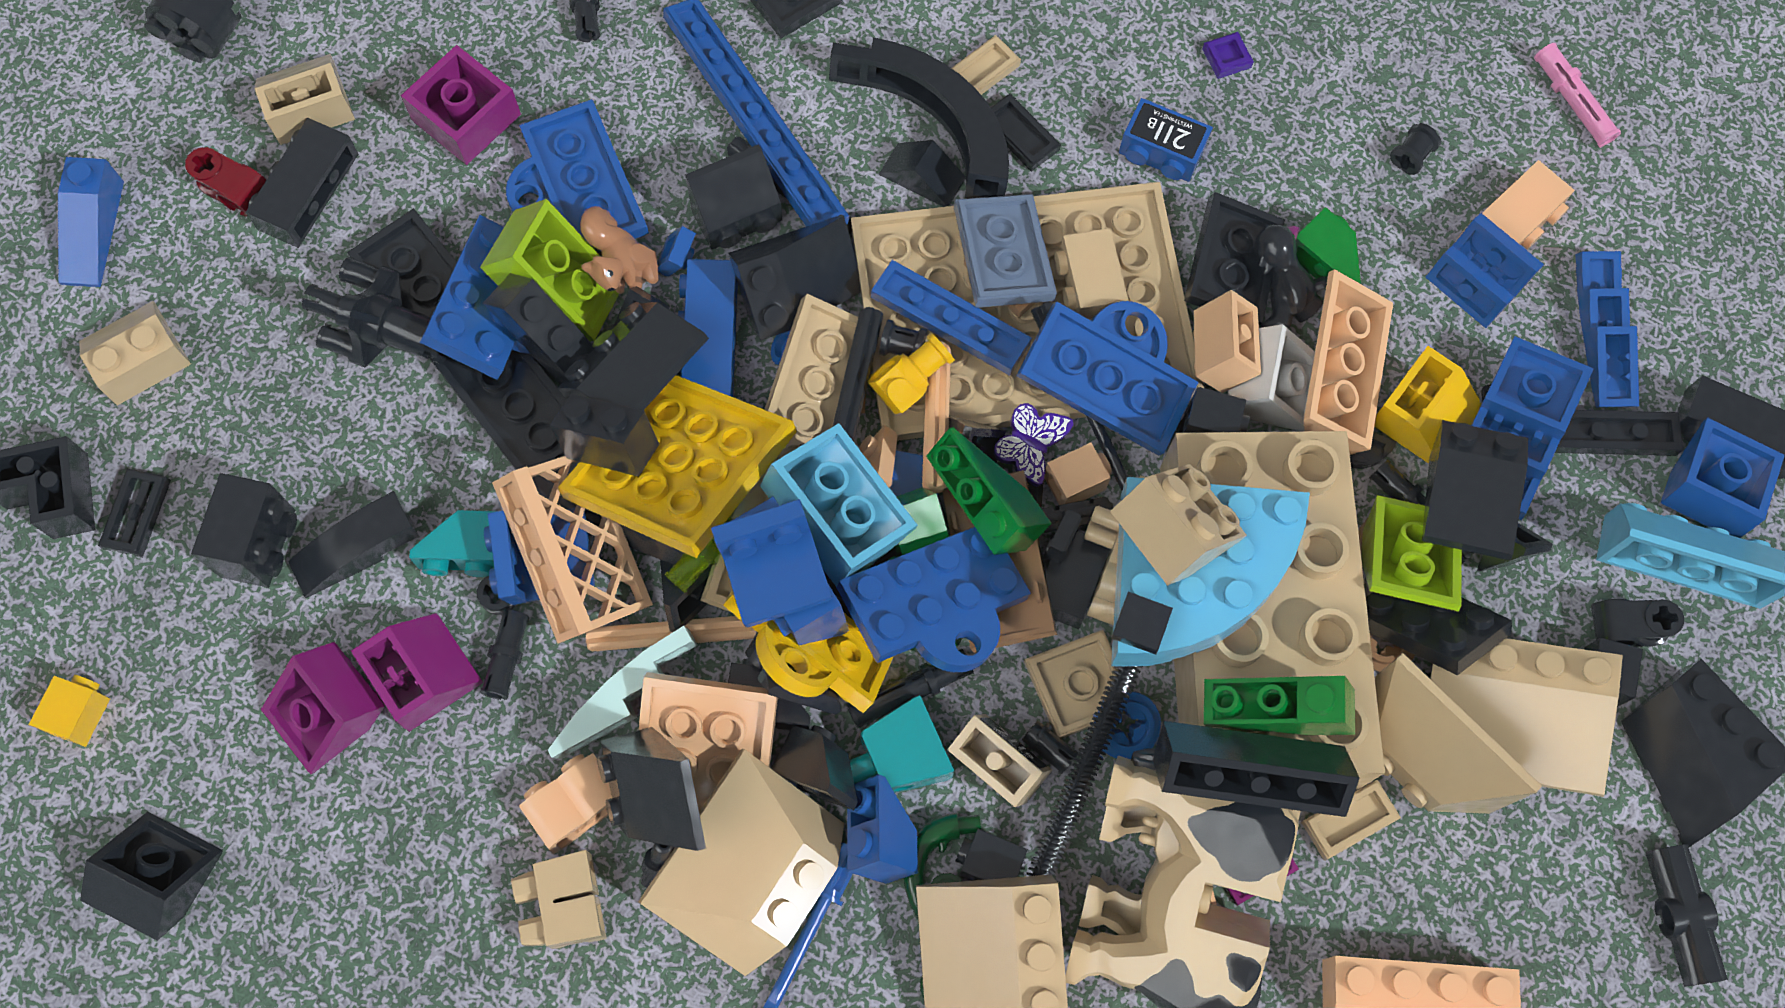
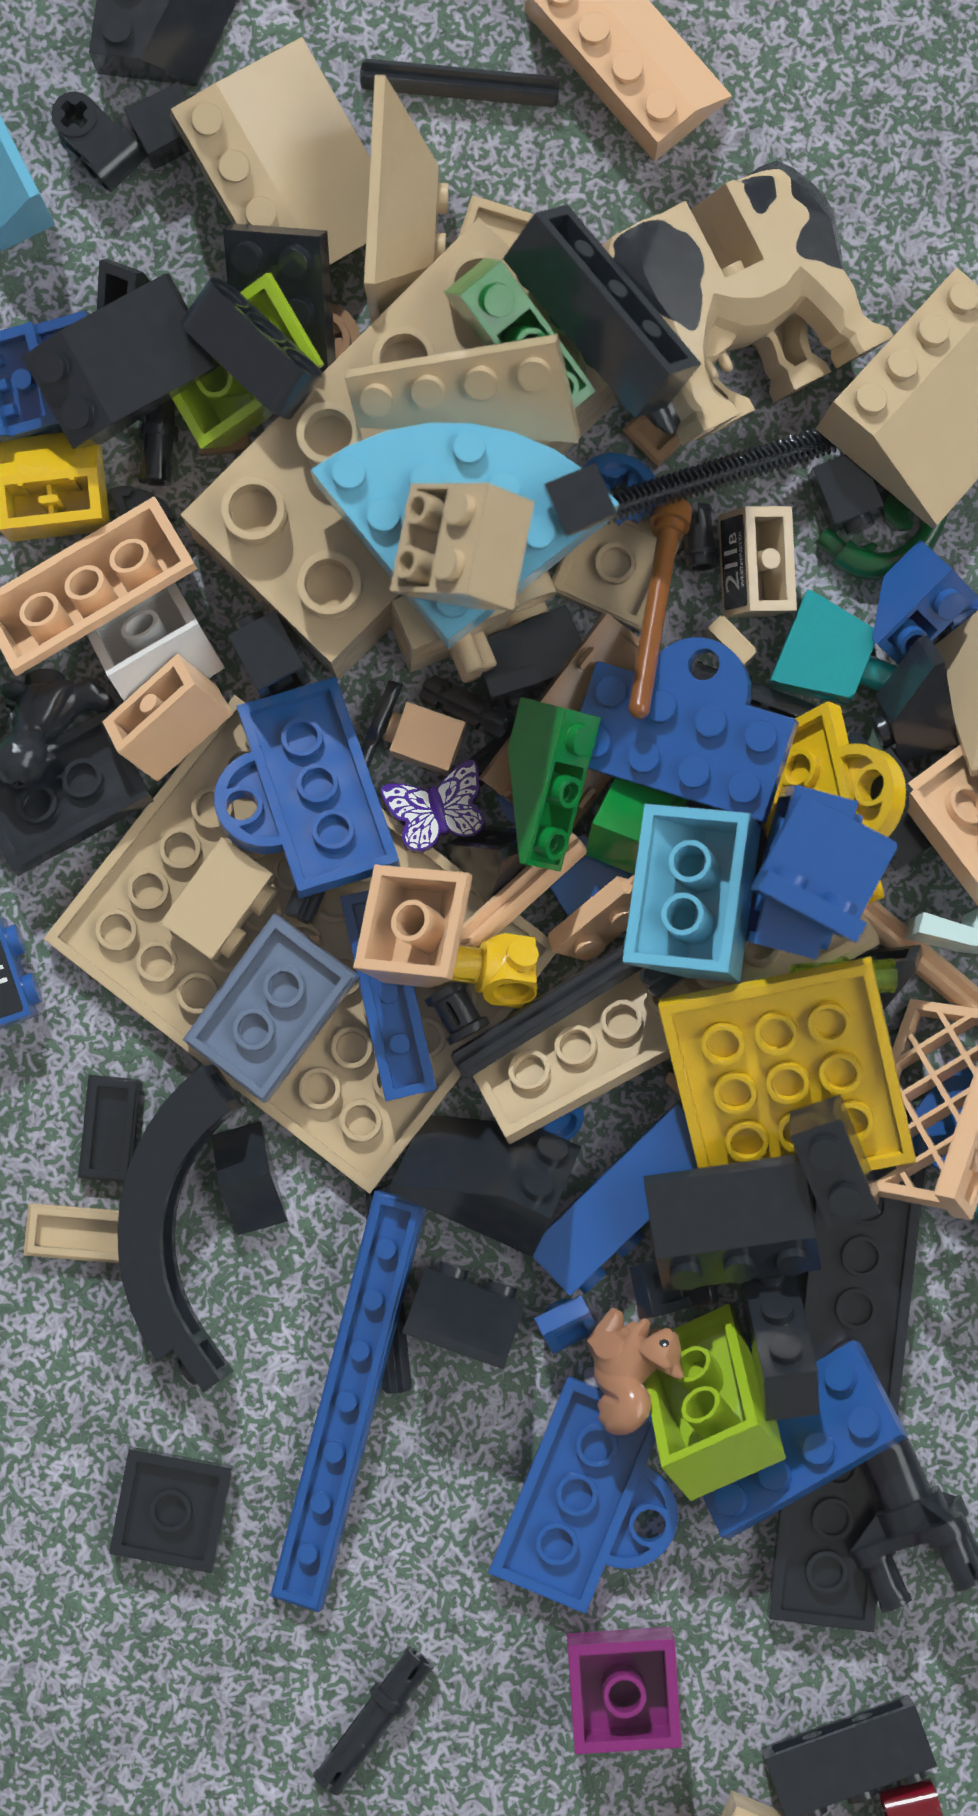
camera: 125 degrees left, 15 degrees up
(965, 700) = (726, 633): none -> tan tile
(978, 338) = (412, 925): none -> light nougat slope
(1072, 725) = (669, 527): none -> dark orange piece
(1266, 649) = (498, 386): none -> tan wing
(1418, 553) = (251, 348): none -> black beam
(1485, 882) = (463, 82): none -> black axle

